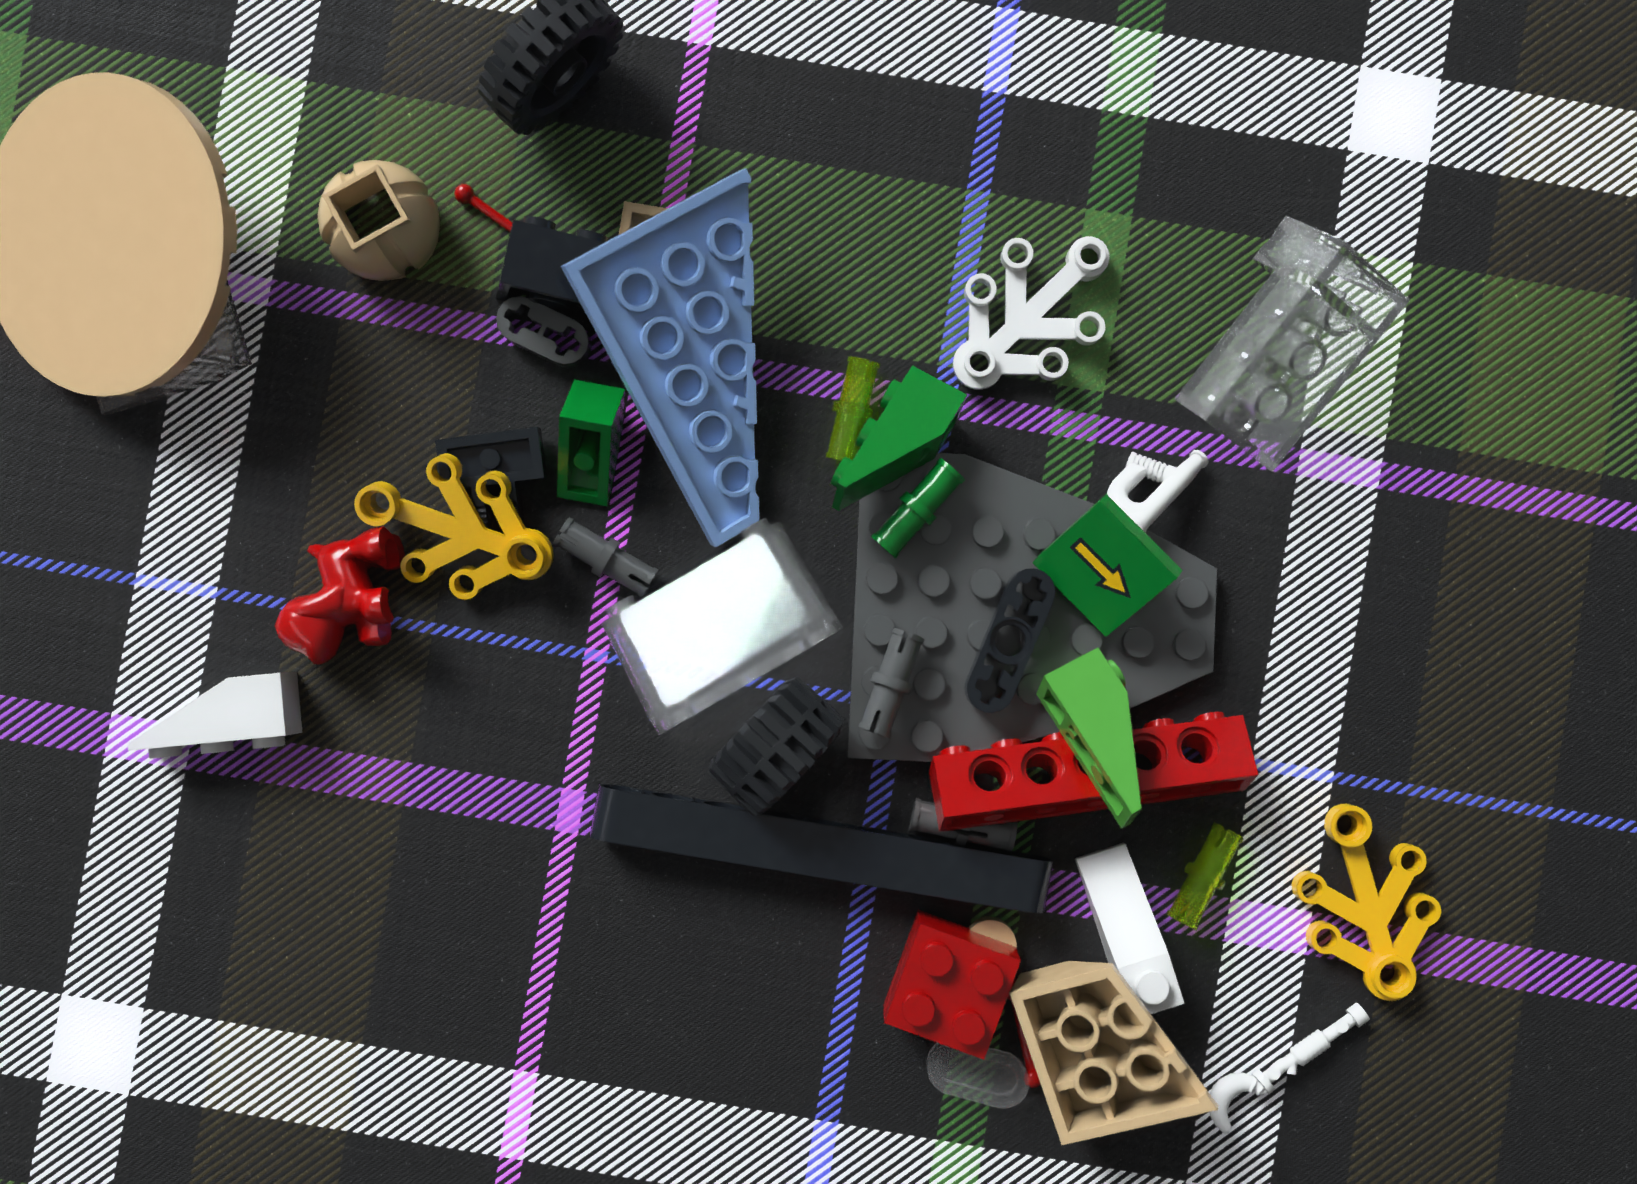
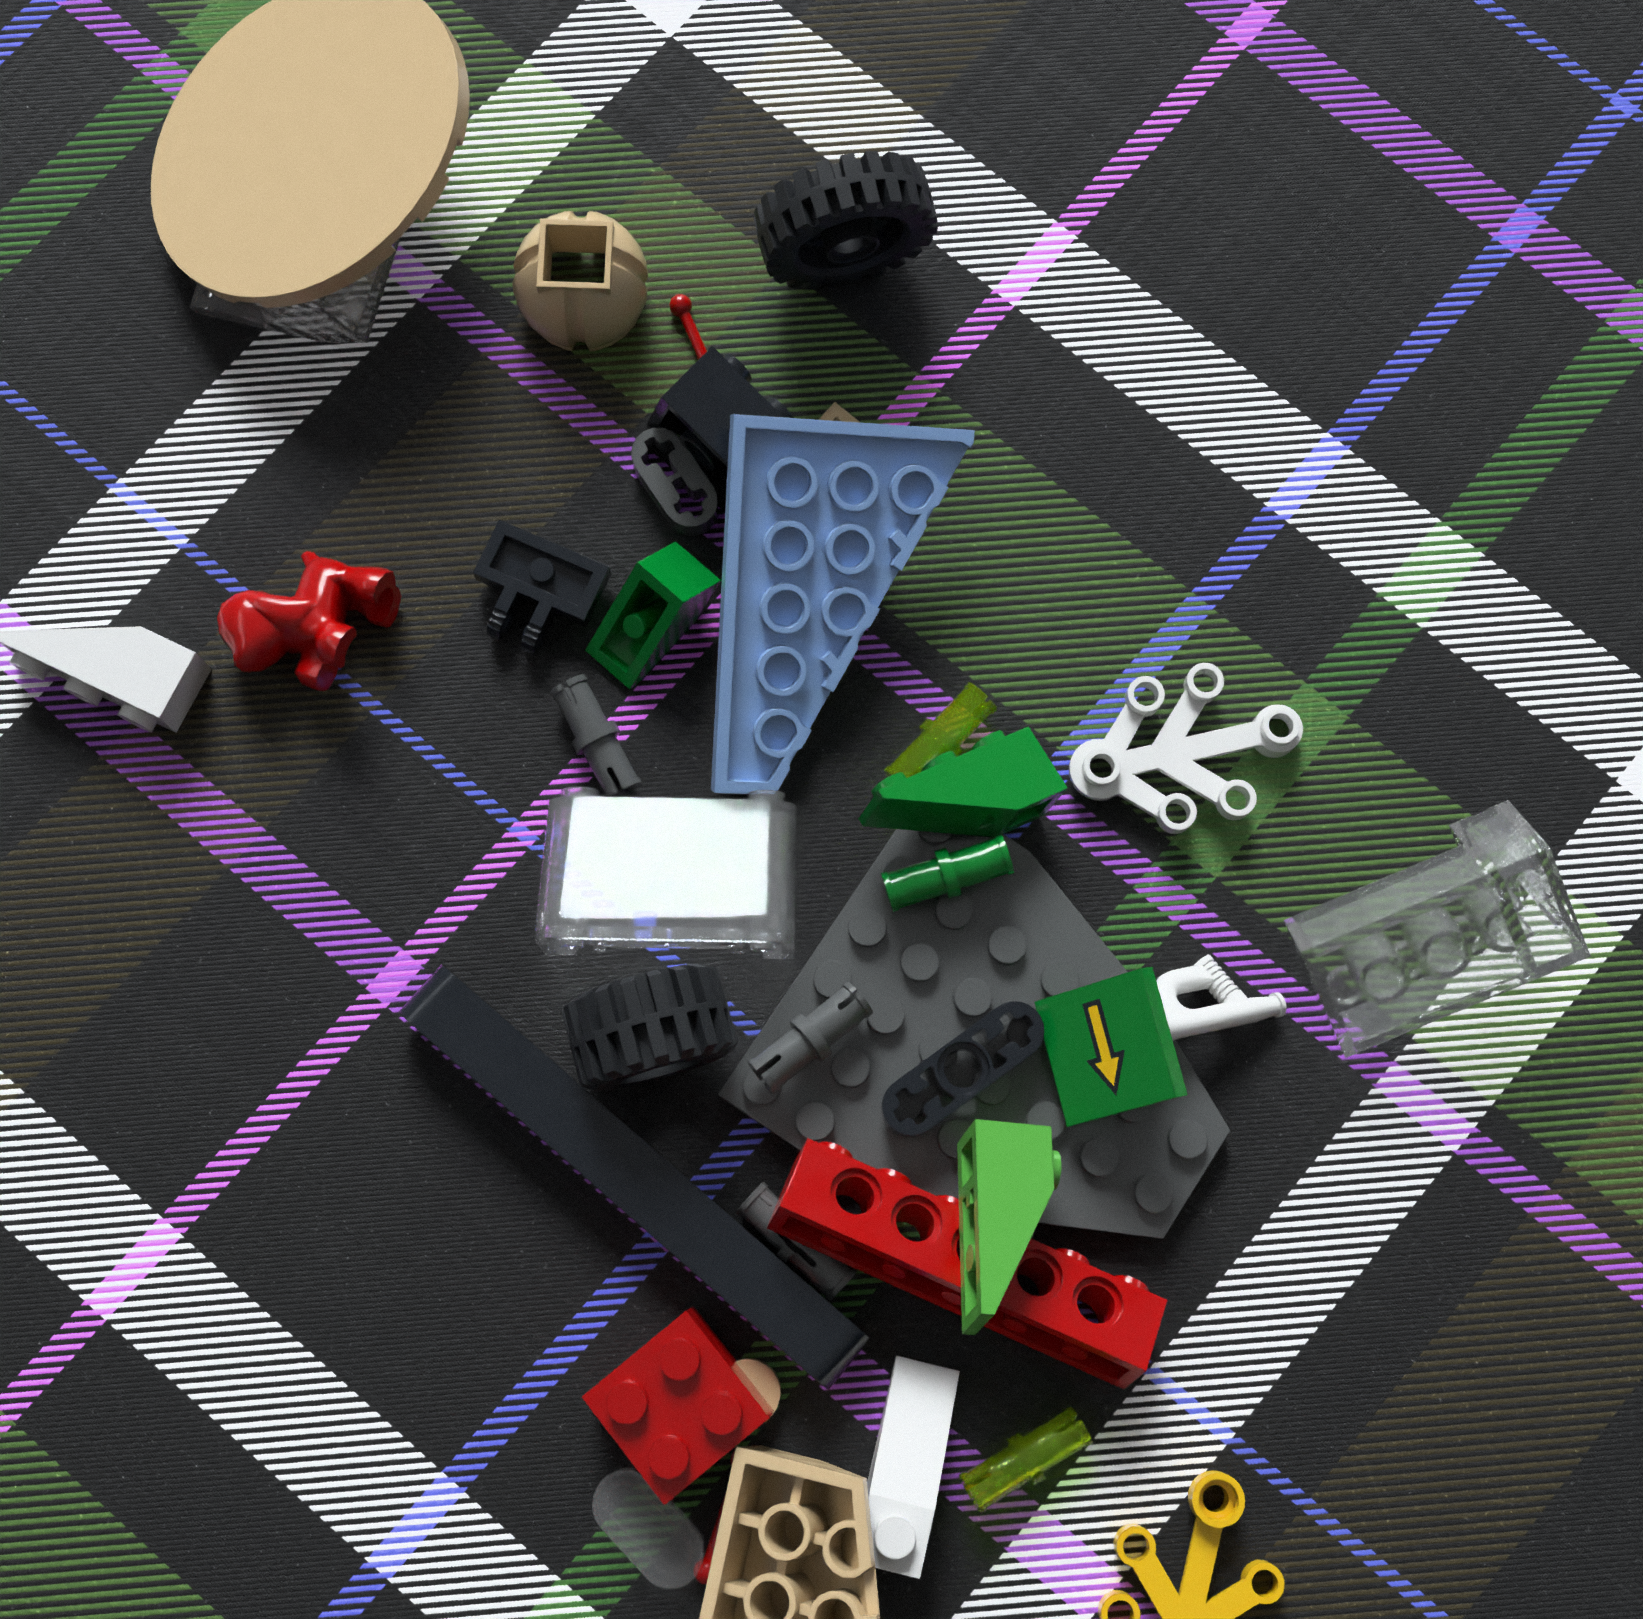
camera: 30 degrees right, 10 degrees down
(464, 530) = (471, 624): yellow plant -> none

